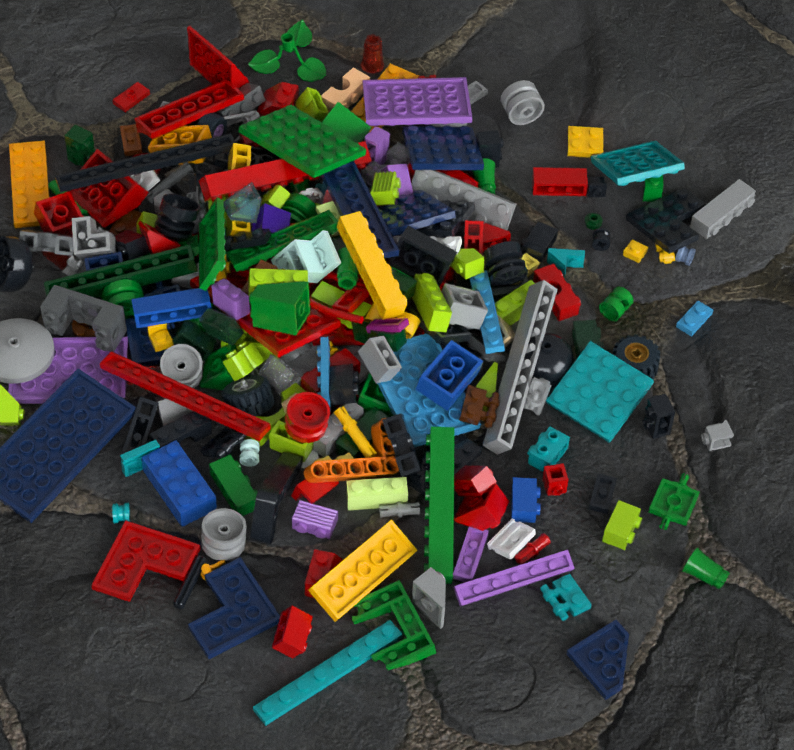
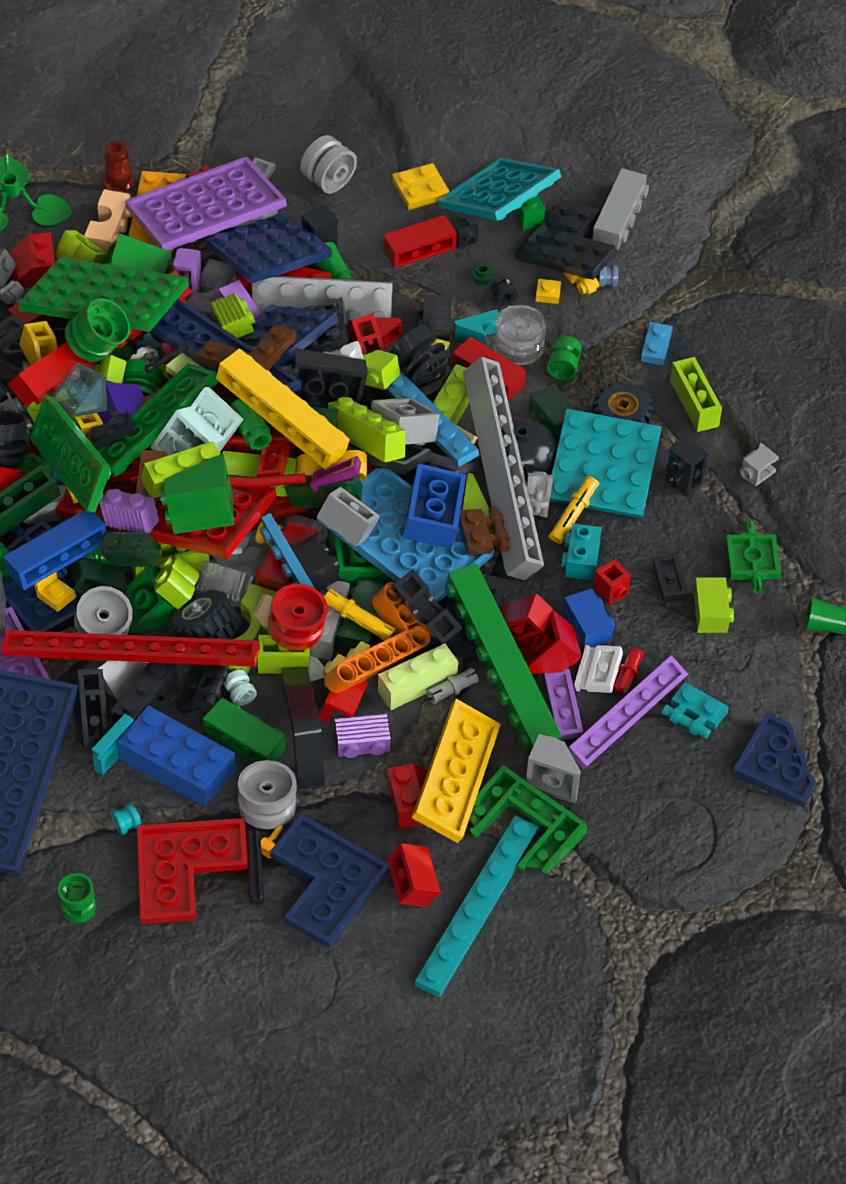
camera: 25 degrees left, 0 degrees up
(57, 553) = (76, 898): none -> green wheel
(276, 164) = (97, 330): none -> green wheel
(333, 198) = (182, 348): none -> black hinge
(382, 222) = (264, 353): none -> reddish brown plate
(564, 412) = (587, 487): none -> yellow pin
(592, 275) = (520, 334): none -> clear wheel
(698, 366) = (695, 394): none -> lime brick

